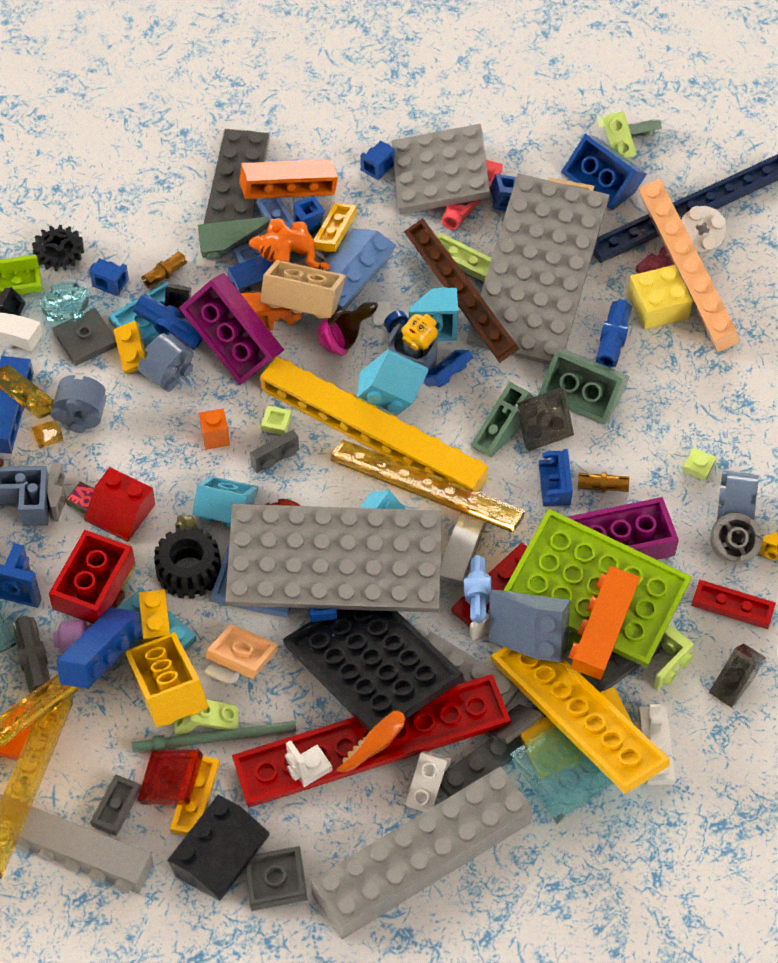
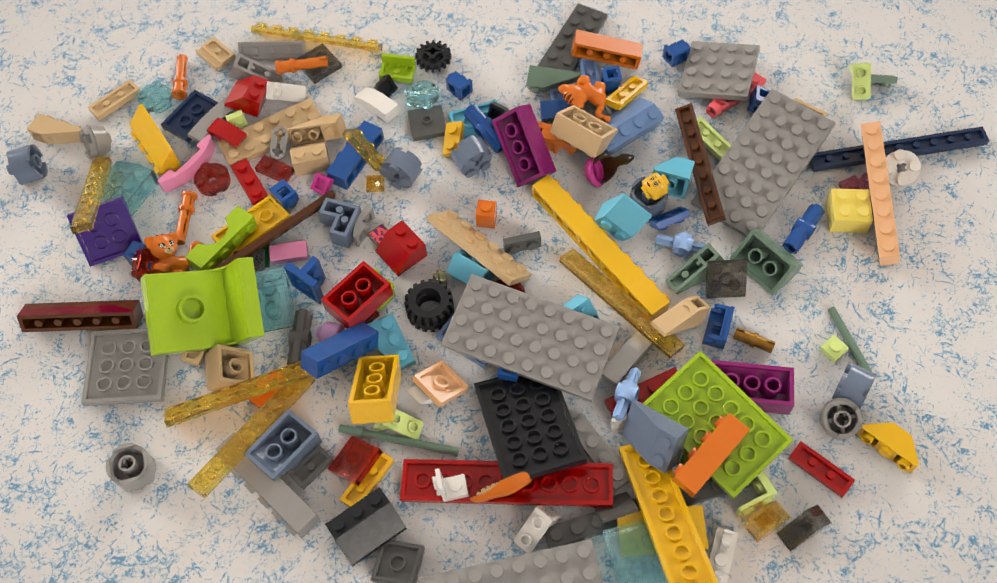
camera: 25 degrees right, 5 degrees up
(72, 786) = (283, 445): none -> sand blue slope
(154, 614) = (390, 336): yellow plate -> none
(164, 269) = (498, 90): pearl gold pin -> none
(223, 472) = (479, 247): none -> tan plate
(276, 420) = (532, 220): yellowish green plate -> none
(381, 313) = (638, 164): white sticker -> none
(395, 319) = (644, 171): blue tile -> none
(475, 395) = (681, 244): none -> light blue axle
(510, 478) = (682, 316): none -> tan slope
(605, 169) = (840, 103): blue slope -> none
(692, 681) = (766, 521): none -> clear yellow slope
(709, 445) = (848, 338): none -> sand green bar

